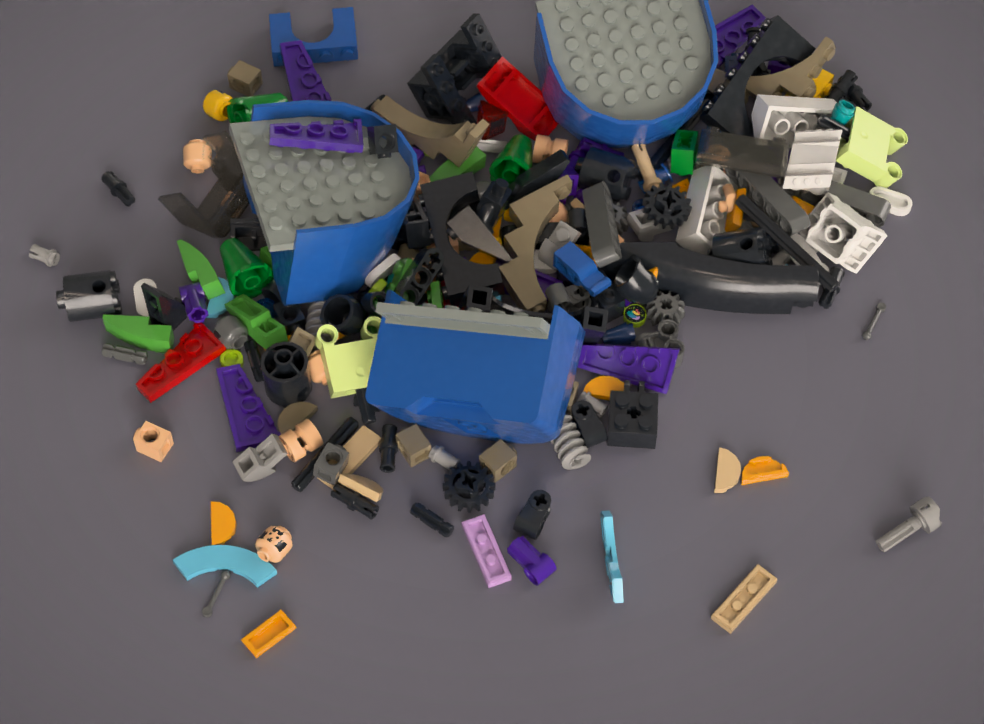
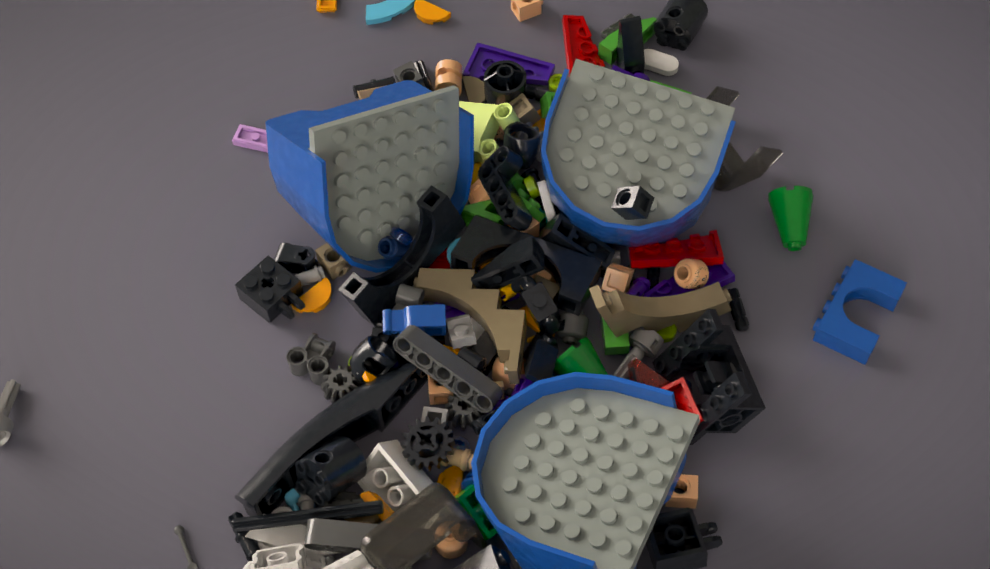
camera: 130 degrees right, 0 degrees up
(49, 257) = (746, 23): light grey pin -> none
(118, 188) = (782, 93): black axle -> none
(197, 156) = (785, 159): light nougat head -> none
(216, 105) = (826, 198): yellow head -> none
(244, 78) = (843, 232): dark tan brick -> none
(260, 461) = (455, 48): light grey brick -> none
(274, 544) = (383, 24): light nougat head -> none
(300, 74) = (798, 266): dark purple wing -> none
(327, 137) = (669, 165): dark purple wing -> none
(532, 517) = (260, 180): black piece -> none
(536, 565) = (223, 157): dark purple piece -> none
(570, 446) = (292, 234): light grey piece -> none
(611, 560) = (196, 208): medium azure tile -> none
(620, 335) = (350, 337): dark blue cone -> none
(632, 363) = (311, 323): dark purple wing -> none
(727, 471) = (172, 329): tan tile -> none
(730, 196) = (390, 501): light nougat arm -> none
(744, 598) = (75, 267): tan tile -> none
(763, 469) = (149, 355): light orange tile -> none

